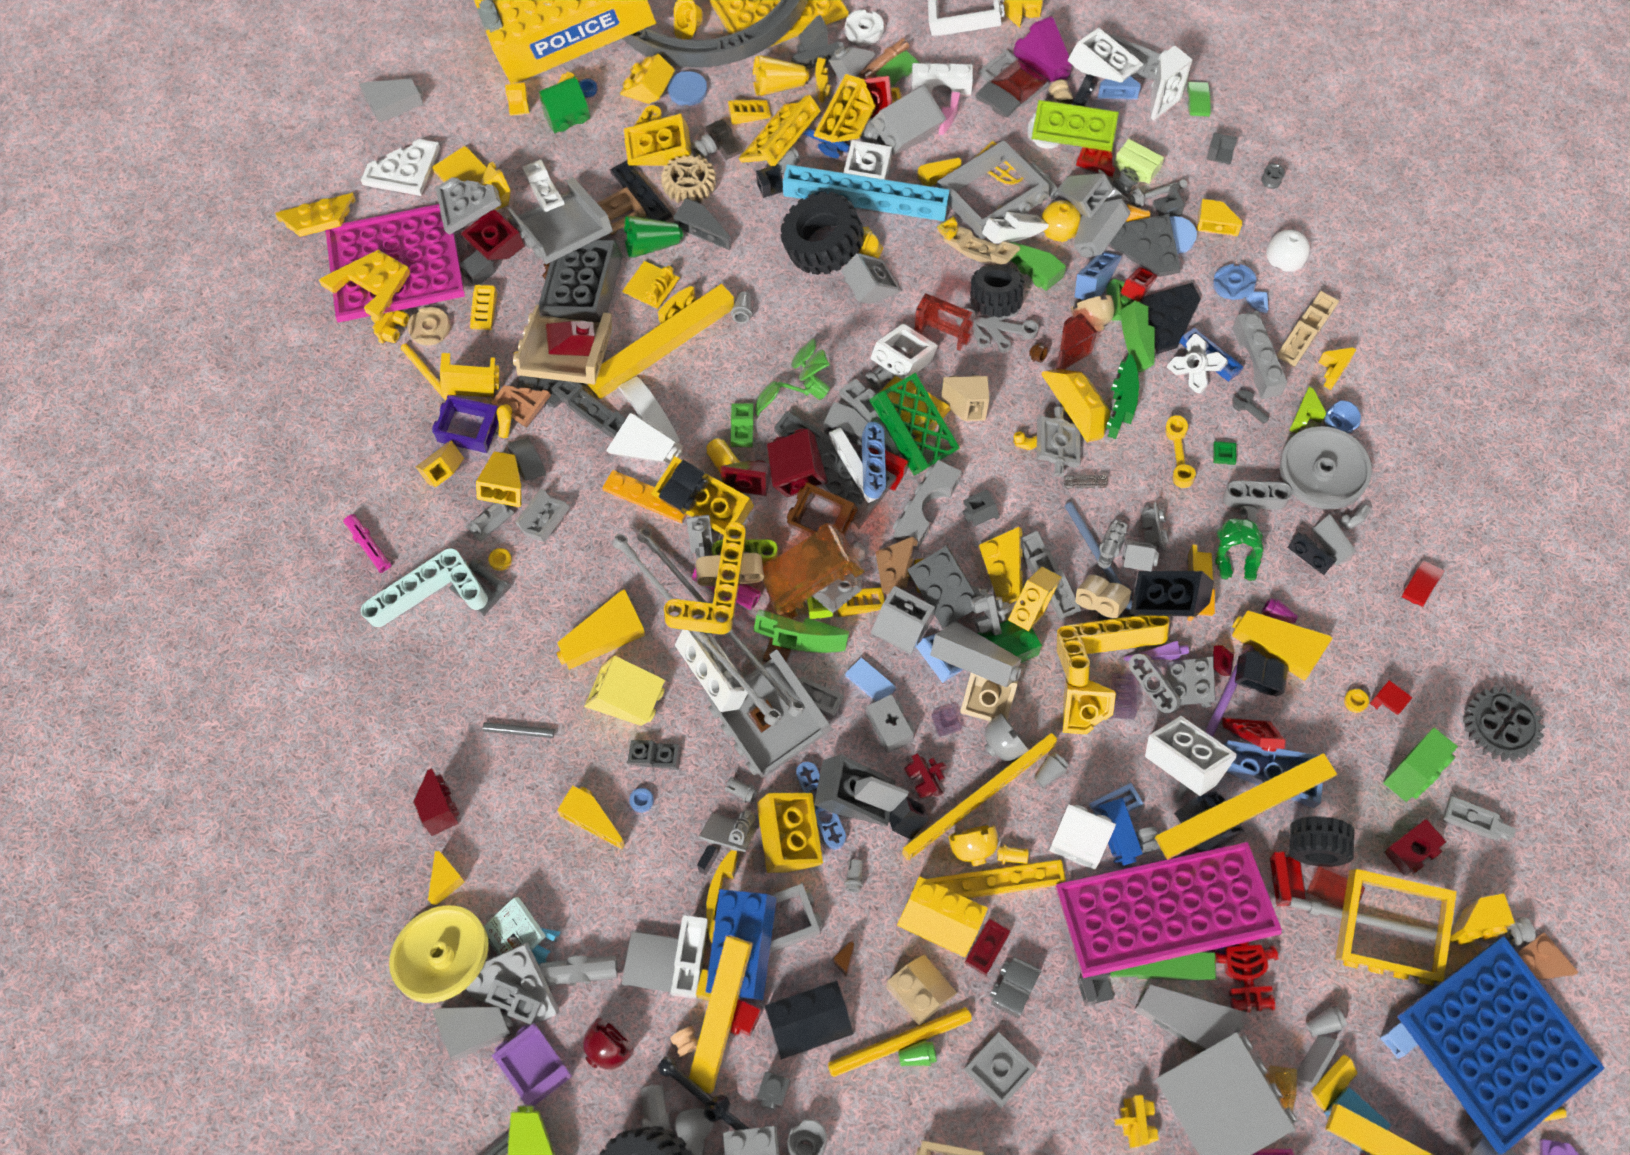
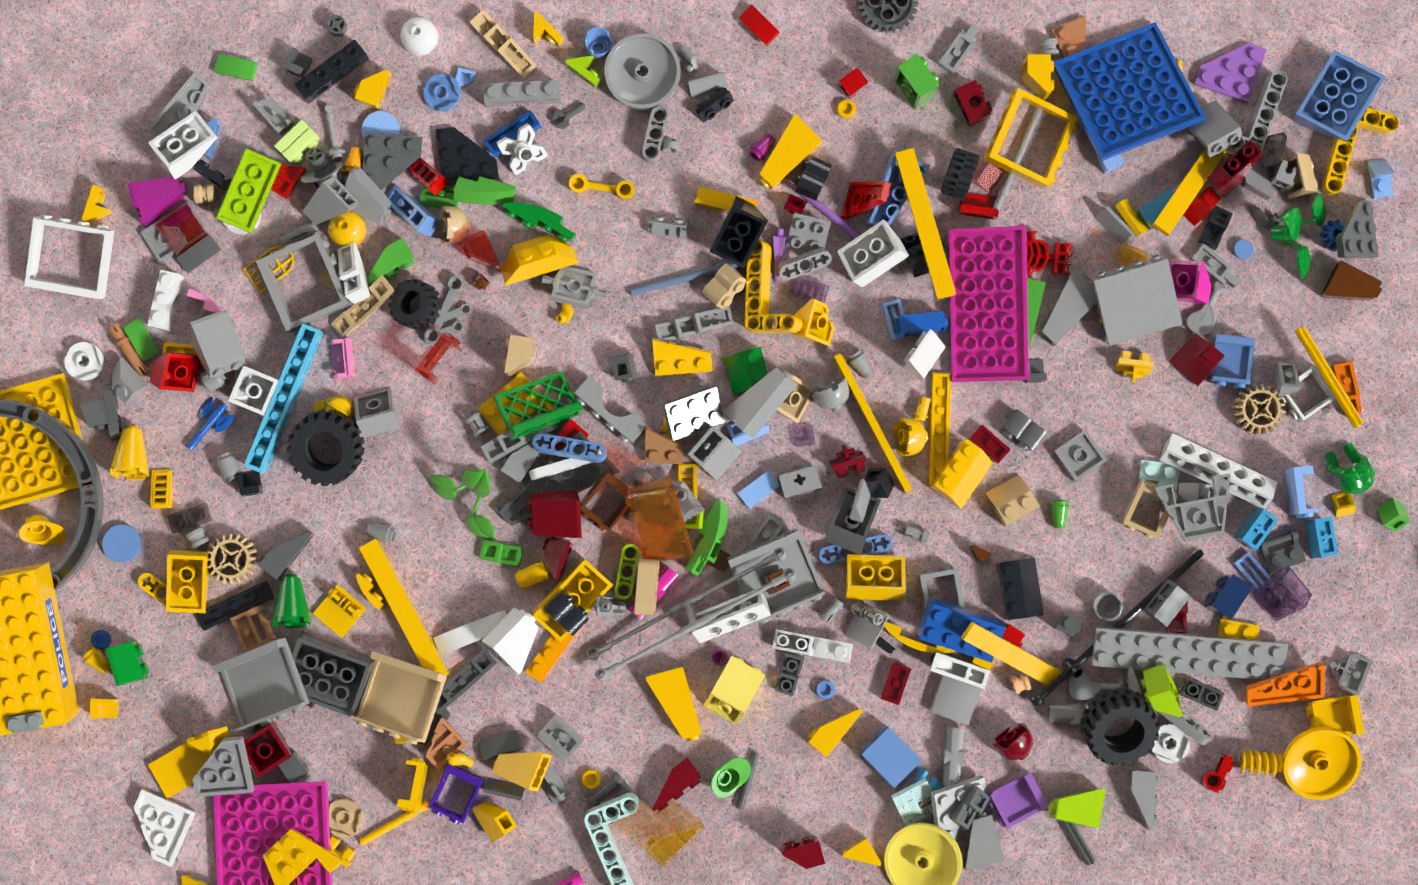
camera: 80 degrees left, 20 degrees up
(391, 97) = (77, 830): light grey slope -> none
(427, 645) = (668, 843): none -> clear yellow slope
(476, 463) = (504, 789): none -> dark grey slope
(483, 294) = (353, 765): yellow slope -> none
(508, 648) = (680, 778): none -> dark red slope
(518, 703) = (730, 776): none -> bright green piece
(542, 186) = (215, 695): white slope -> none
(567, 890) = (890, 756): none -> medium blue panel
(570, 338) = (393, 691): dark red slope -> none
(647, 79) = (107, 580): yellow slope -> none
(661, 882) = (895, 683): none -> dark red plate
(662, 668) = (717, 655): none -> magenta hinge
(691, 773) = (812, 646): none -> white slope
(723, 588) = (670, 596): yellow beam -> none
(781, 132) = (206, 458): yellow fence -> none
(822, 87) = (150, 415): yellow slope -> none
(847, 111) = (196, 399): yellow wedge -> none
(899, 1042) = (1047, 524): yellow axle -> none
(909, 341) = (453, 387): white window -> none
(922, 242) = (342, 358): none -> bright pink hinge
(932, 172) = (271, 328): yellow slope -> none
(948, 228) = (334, 331): yellow tile -> none
(992, 611) = (722, 378): light grey hips -> none
(1036, 596) = (721, 342): yellow window -> none
(1085, 481) = (612, 272): clear smoke axle -> none
(1112, 543) = (676, 265): light grey hinge -> none
(1139, 555) = (696, 248): light grey brick -> none
(1147, 840) = (930, 303): light grey wheel -> none
(1162, 135) = (273, 114): none -> light grey hinge
(1169, 80) = (221, 94): white slope -> none
(1171, 204) = (349, 127): dark grey panel -> none
(1223, 178) = (331, 71): none -> black brick
(1224, 453) = (608, 149): green tile -> none
(1234, 533) = (692, 159): green hair -> none
(1327, 1022) = (1088, 209): light grey cone -> none

